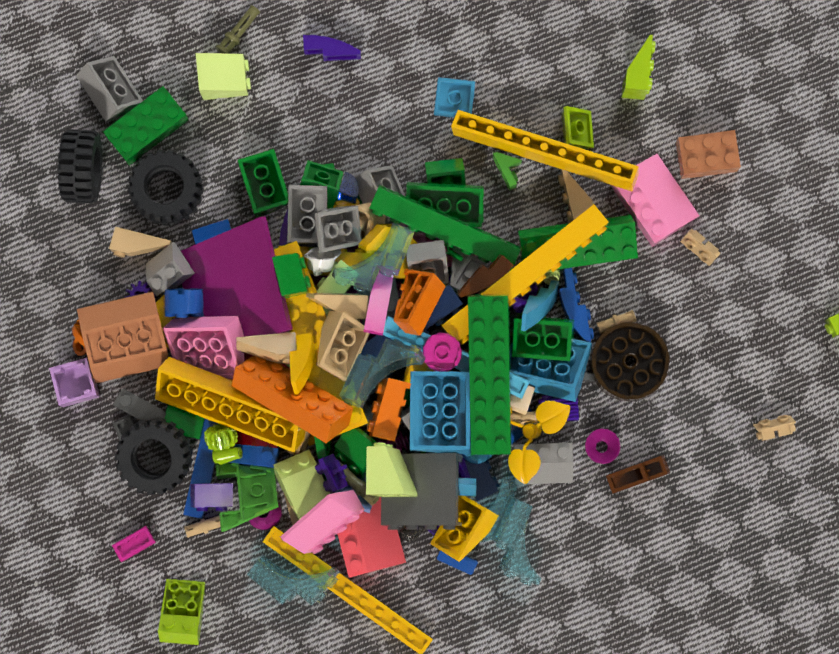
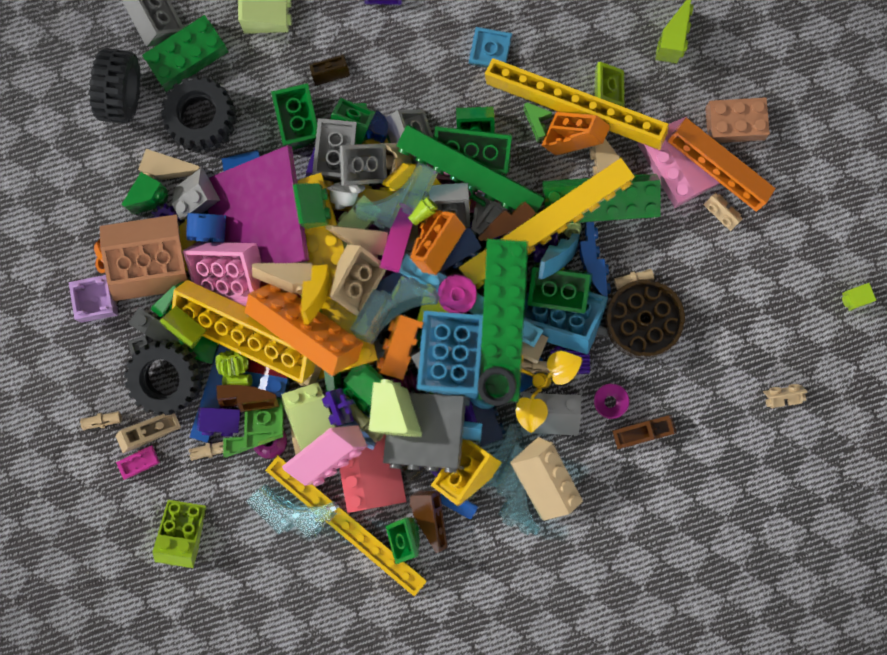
camera: 10 degrees right, 0 degrees up
(92, 504) = (101, 420): none -> tan pin
(119, 273) = (145, 195): none -> green slope
(140, 512) = (146, 431): none -> tan slope
(148, 382) = (164, 304): none -> green slope
(169, 404) = (183, 327): none -> lime slope
(238, 470) = (245, 397): none -> reddish brown slope
(293, 131) = (329, 70): none -> dark brown slope
(402, 272) = (423, 210): none -> lime cone
(407, 599) = (404, 539): none -> green slope
(430, 574) = (429, 515): none -> reddish brown slope
(503, 438) = (497, 400): none -> black tyre
(544, 529) = (546, 480): none -> tan slope
(545, 179) = (574, 132): none -> orange wedge
(695, 201) = (721, 164): none -> orange brick

